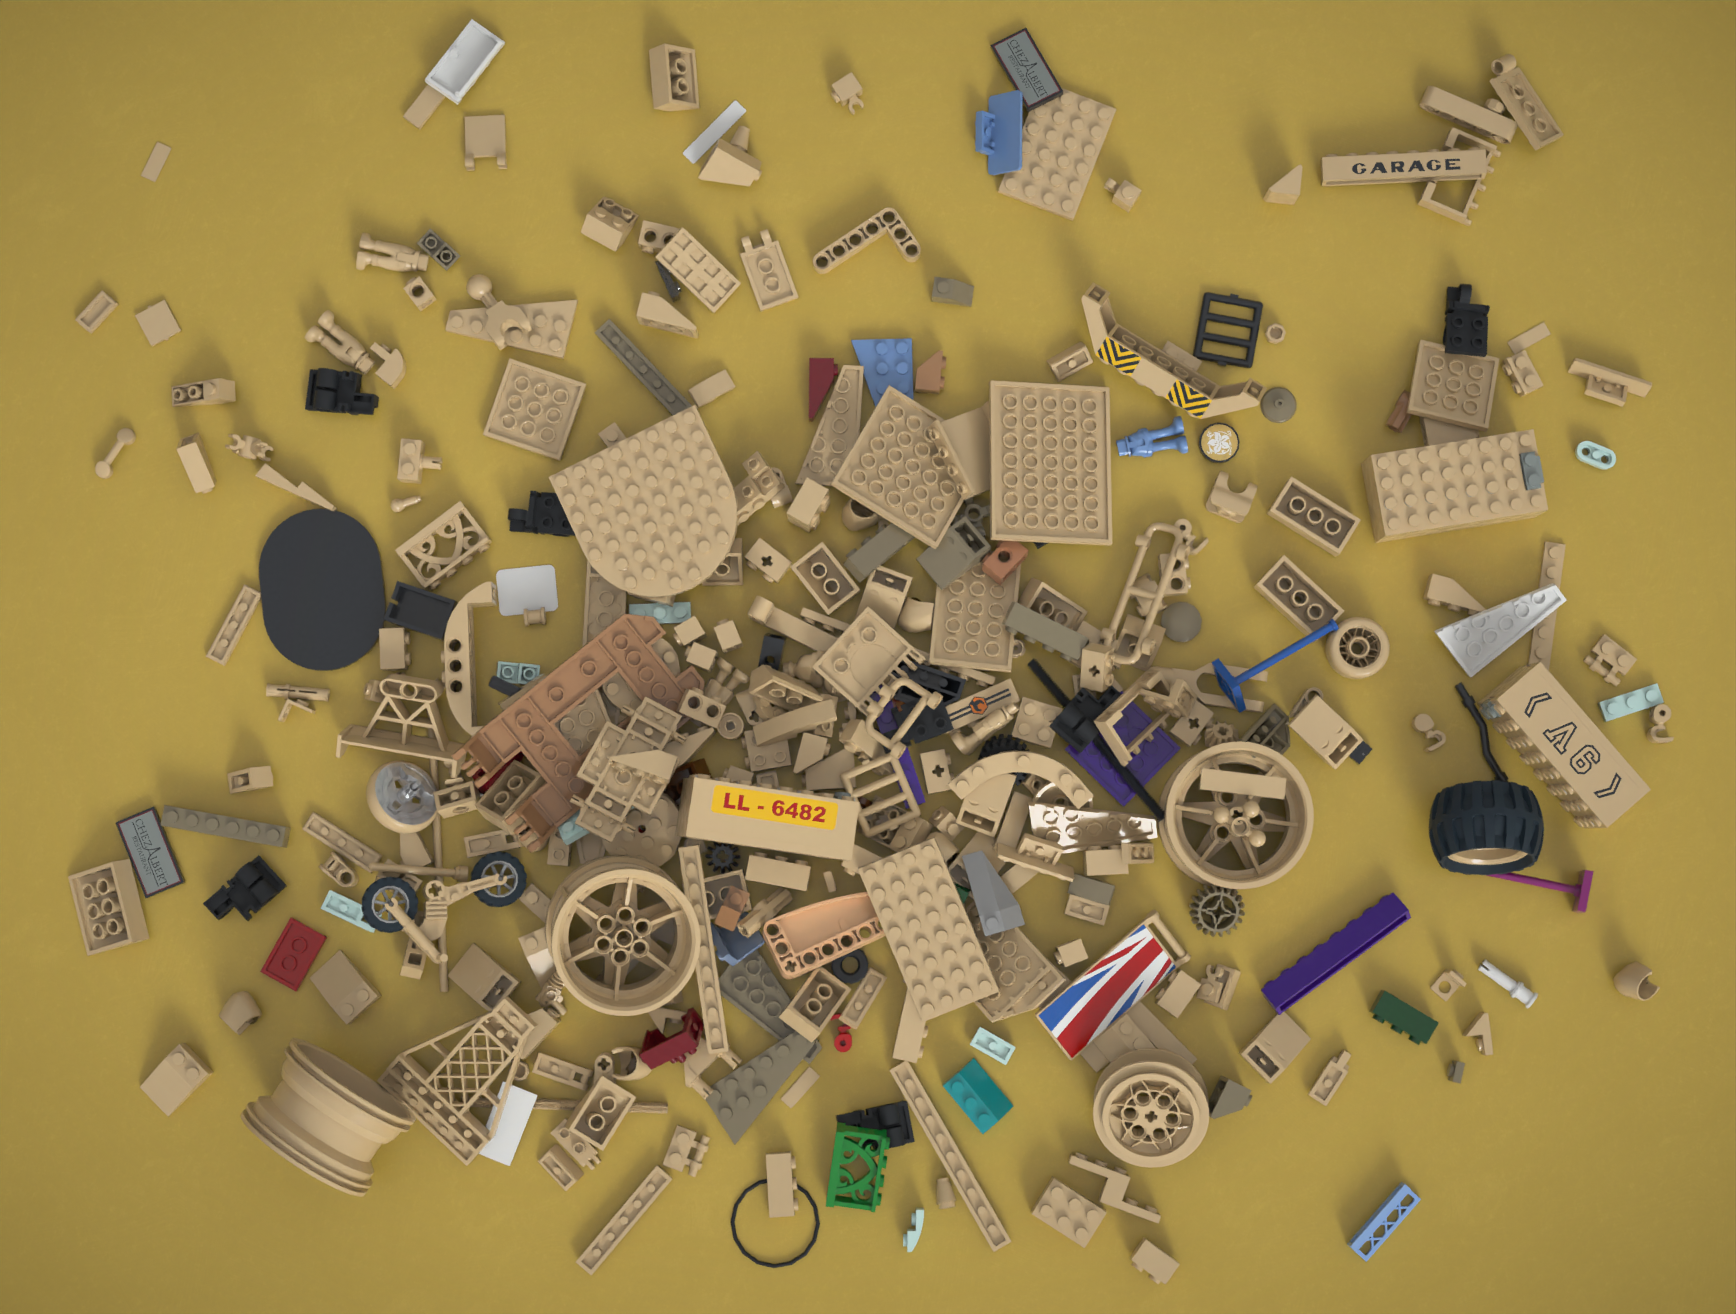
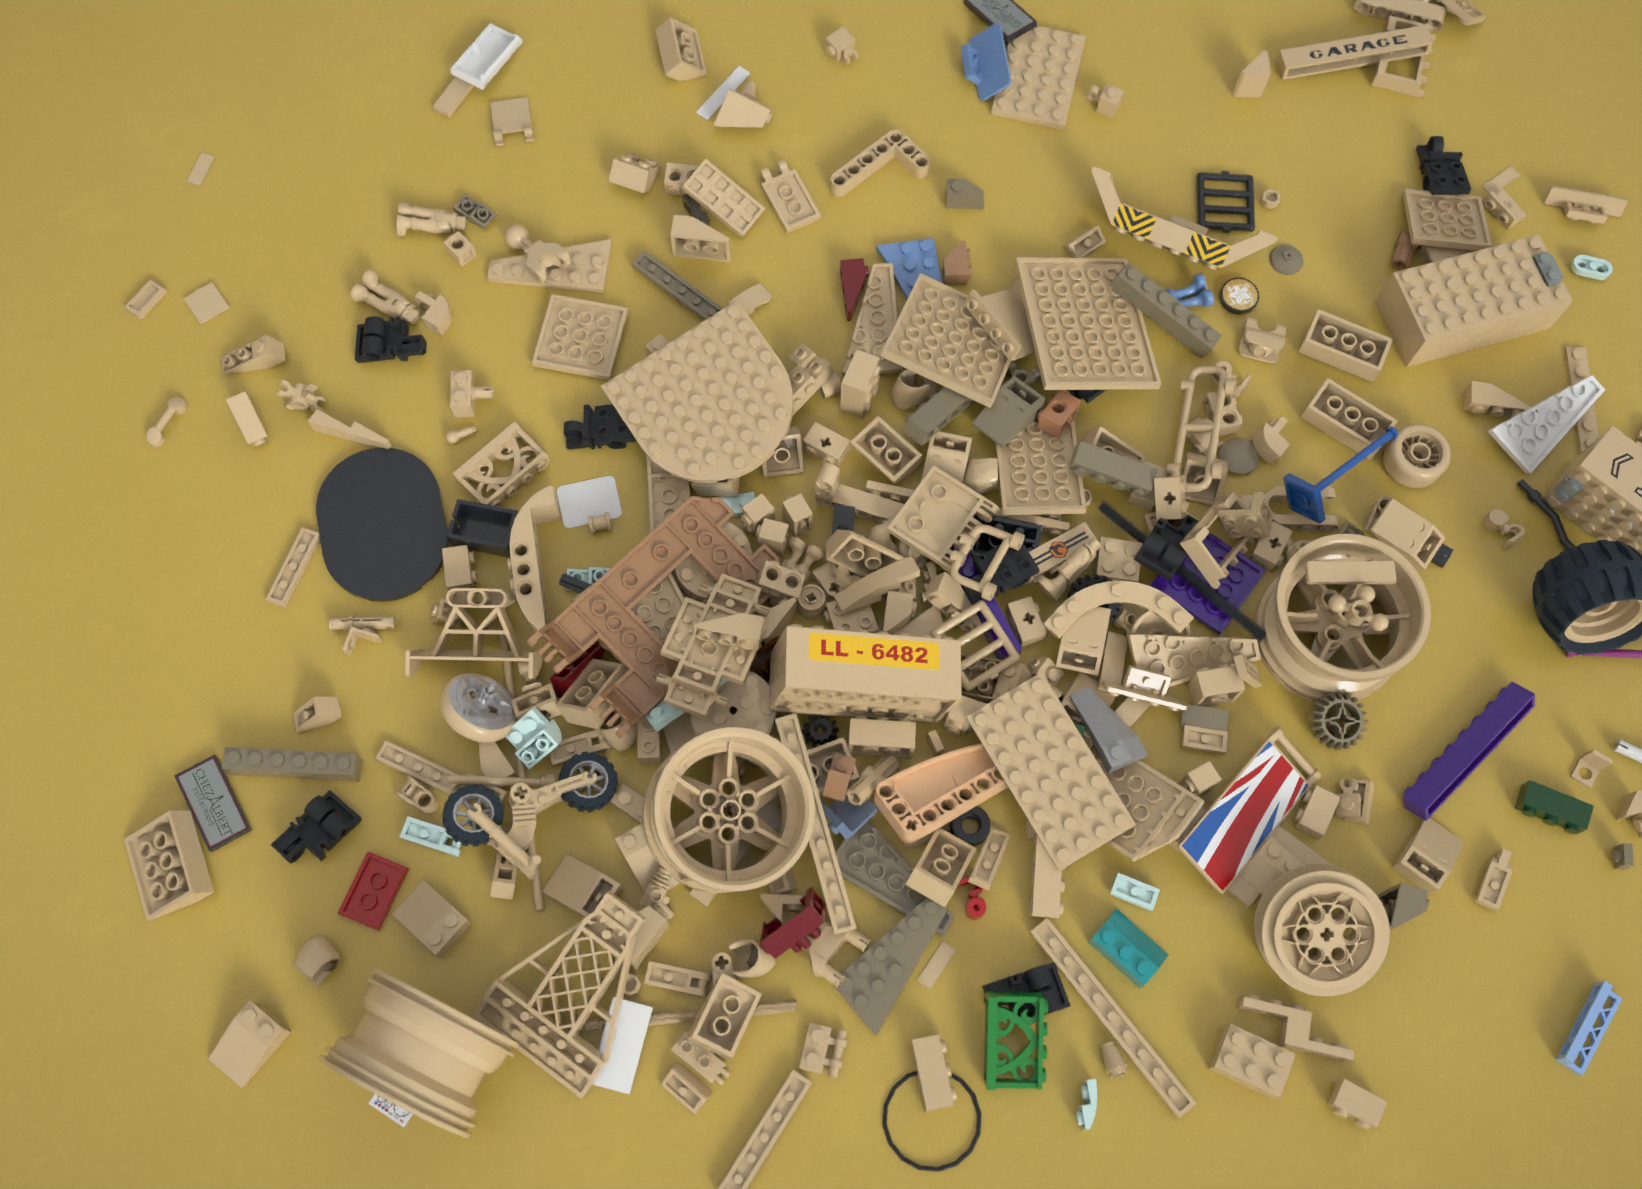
camera: 10 degrees left, 15 degrees down
(453, 831) = (534, 737): none -> light aqua brick
(1133, 458) = (1165, 310): none -> dark tan brick
(1211, 612) = (1269, 442): none -> tan brick

